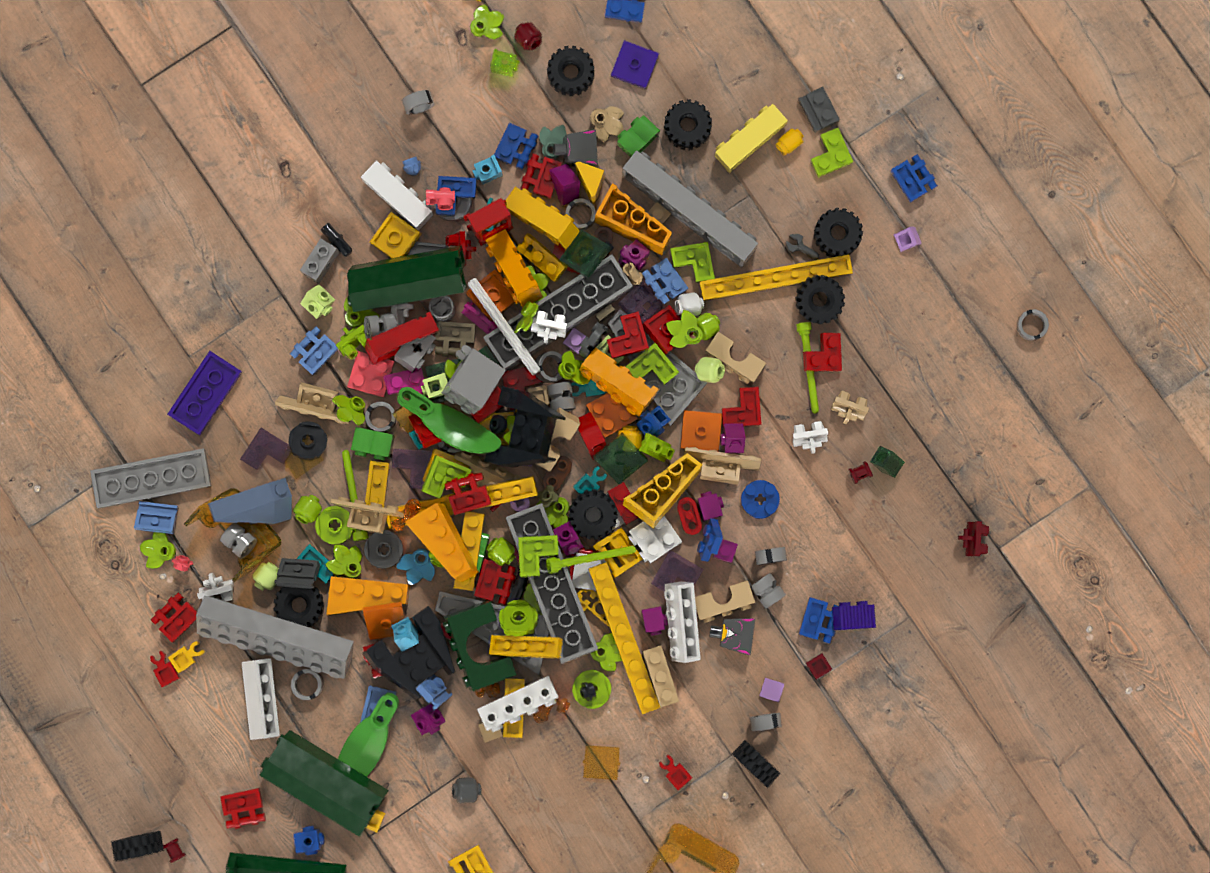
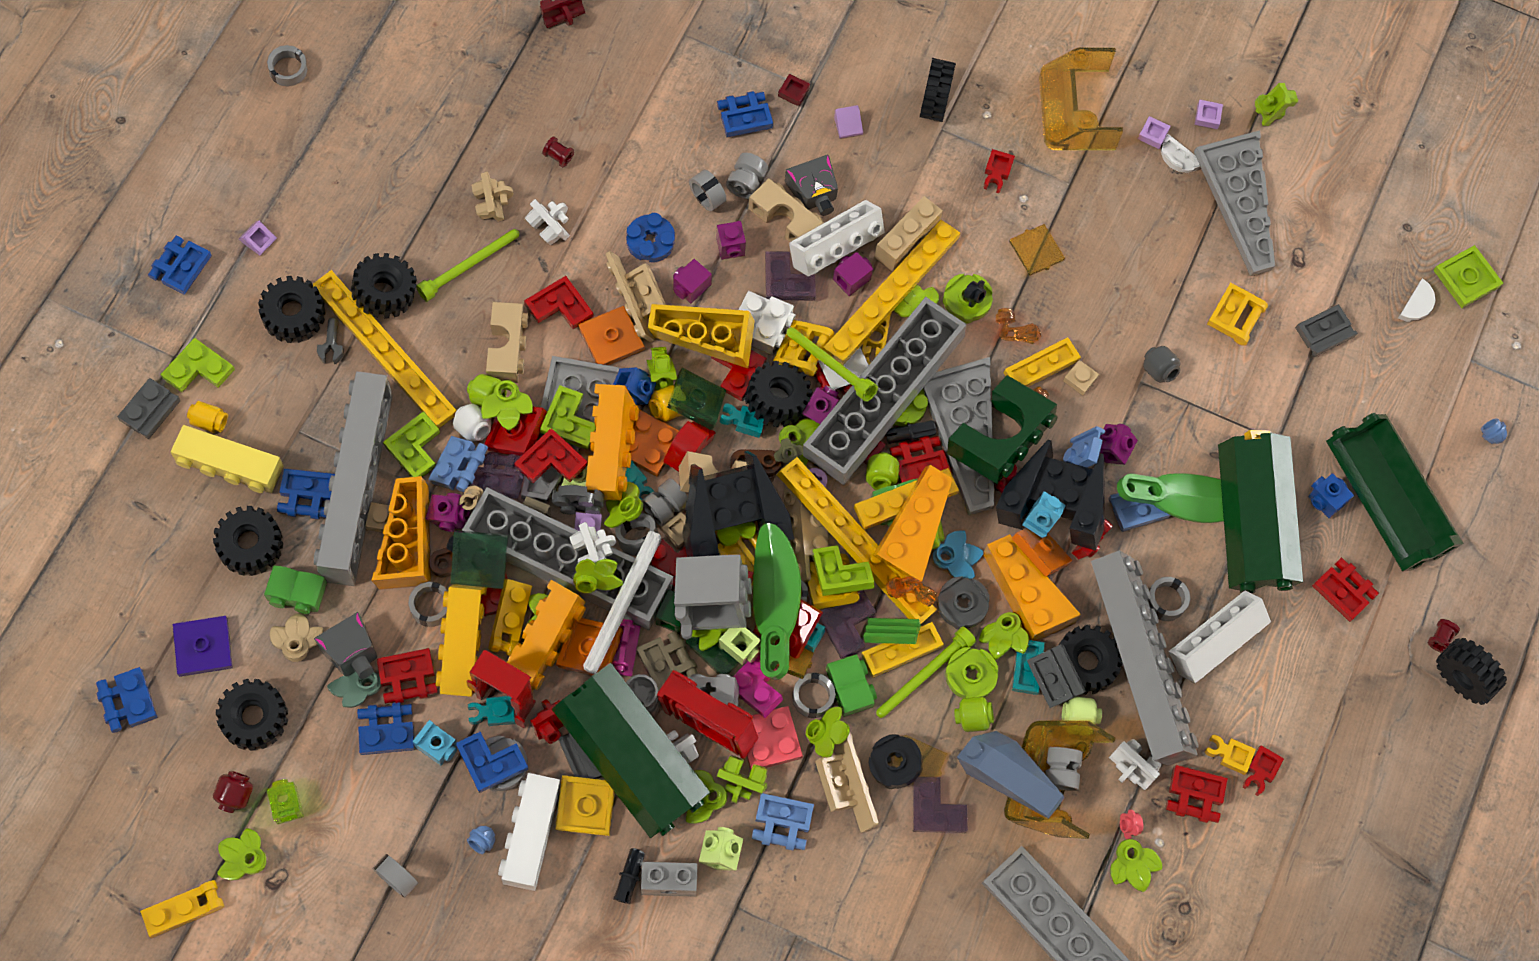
camera: 130 degrees left, 15 degrees down
(156, 517) = (1099, 889): medium blue plate -> none
(204, 393) = (915, 923): dark purple plate -> none
(367, 517) = (942, 631): tan bracket -> none
(374, 325) = (709, 748): light grey wheel -> none
(401, 478) = (892, 631): none -> bright green tile
(443, 197) = (503, 763): coral plate -> none
(469, 499) = (849, 526): red plate -> none
(498, 424) = (740, 543): black plate -> none
(518, 703) = (1036, 355): white brick -> none
(522, 627) = (932, 401): lime plate -> none
(525, 646) = (973, 374): yellow plate -> none
(531, 549) = (864, 421): lime plate -> none
(565, 184) = (401, 639): magenta slope -> none
(591, 179) = (384, 607): yellow slope -> none
(689, 516) = (713, 298): red plate -> none
(706, 178) = (304, 485): none -> blue plate
(709, 370) = (536, 355): yellowish green head -> none
(711, 540) = (727, 252): blue plate -> none
(733, 438) = (600, 293): magenta brick -> none
(765, 721) = (887, 106): light grey piece -> none
(829, 357) = (447, 247): red plate -> none
(854, 617) = (720, 78): dark purple brick -> none
(887, 461) = (530, 128): clear green brick -> none

